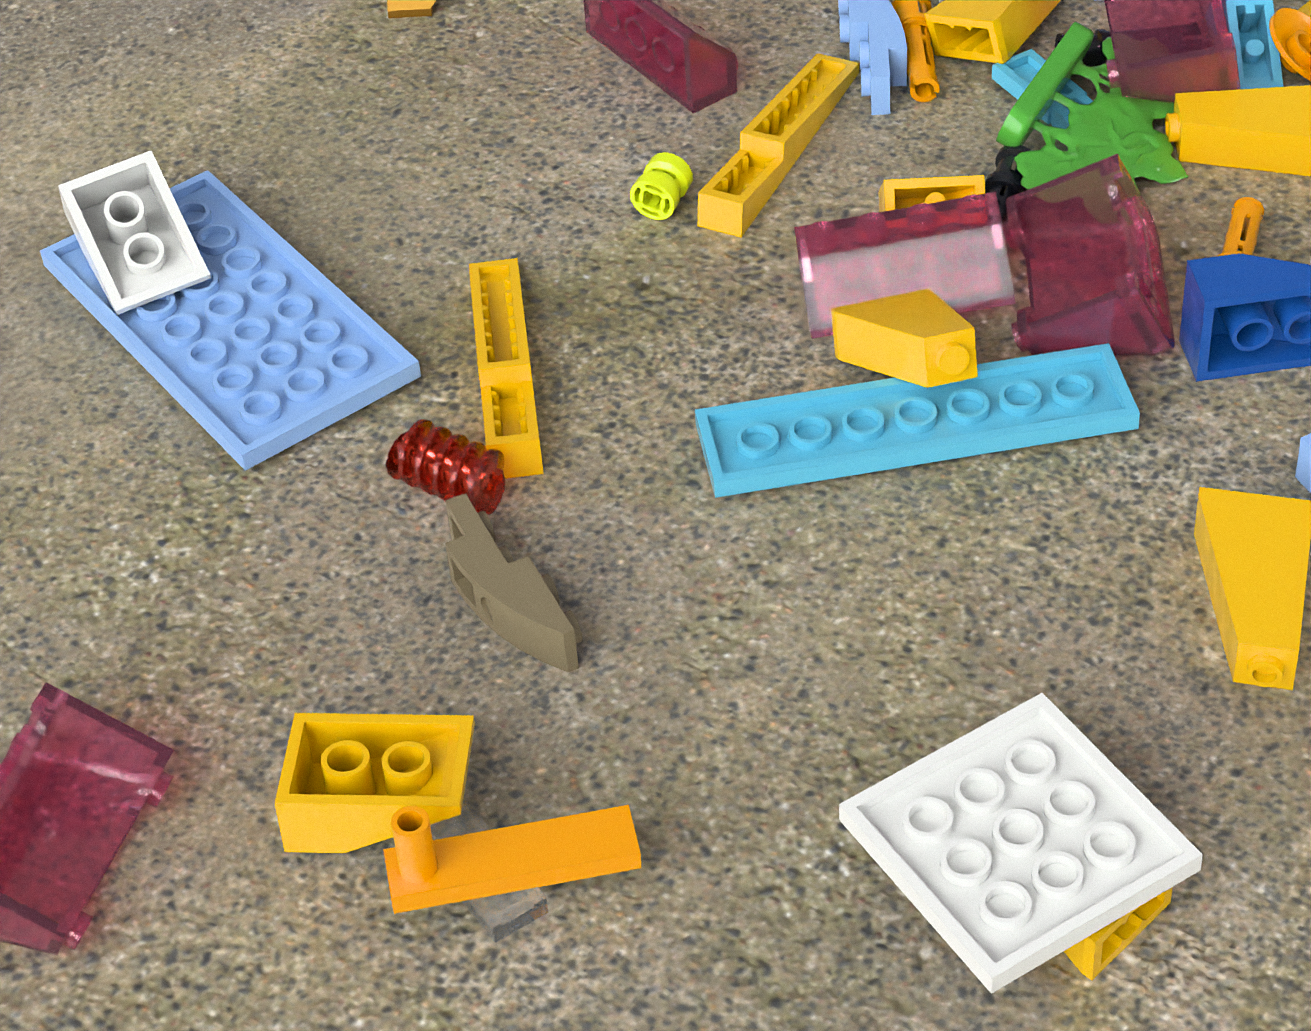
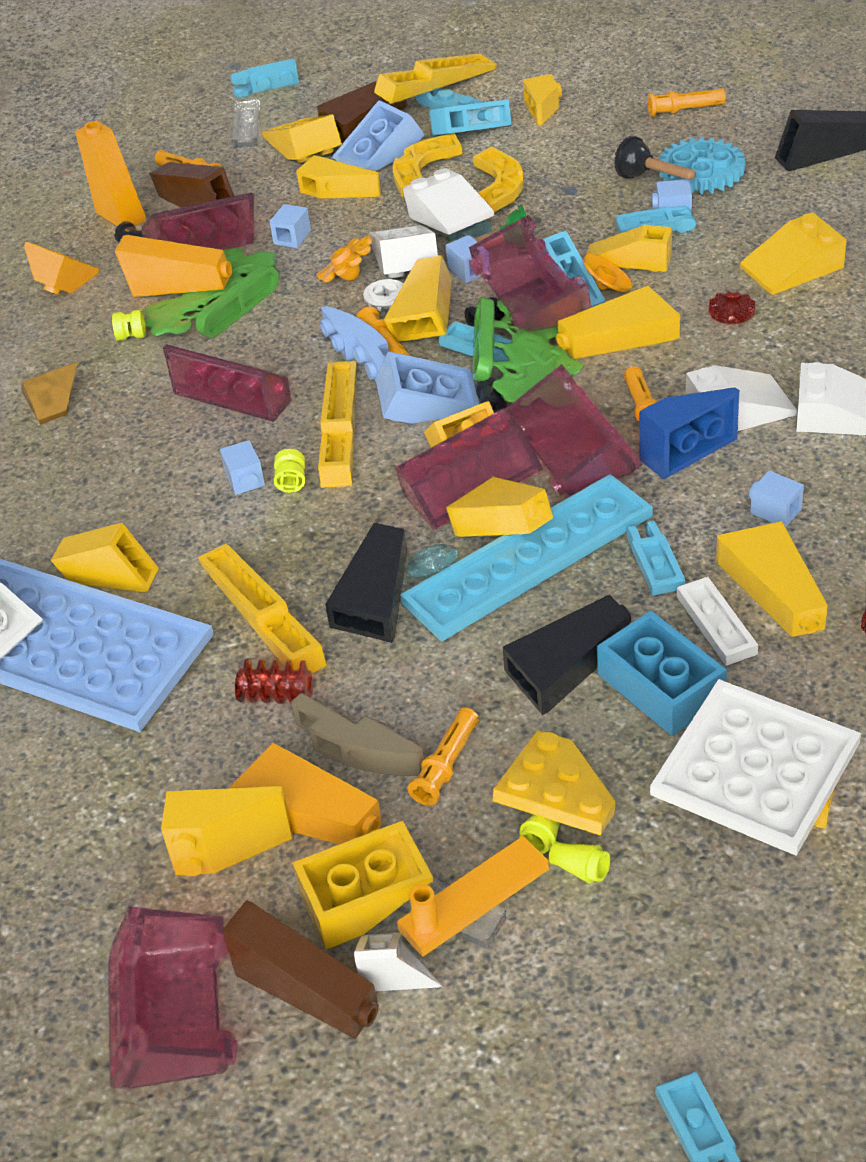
camera: 25 degrees left, 0 degrees up
(220, 861) = (298, 971): none -> reddish brown slope
(247, 632) = (222, 826): none -> yellow slope
(343, 225) = (106, 559): none -> yellow slope
(348, 904) = (391, 964): none -> white slope
(379, 635) = (315, 799): none -> light orange slope
(590, 668) = (439, 766): none -> light orange pin
(601, 160) = (242, 467): none -> light blue brick
(651, 393) = (371, 586): none -> black slope
(674, 808) = (540, 832): none -> neon yellow cone
(701, 878) = (582, 860): none -> neon yellow cone
(726, 754) = (557, 784): none -> yellow plate
(769, 377) = (431, 560): none -> clear light blue gear
(878, 575) = (562, 653): none -> black slope
(919, 130) = (423, 389): none -> light blue slope
(980, 644) = (659, 671): none -> dark azure brick
(1095, 494) = (655, 559): none -> medium azure hinge
(1126, 615) = (717, 621): none -> white plate

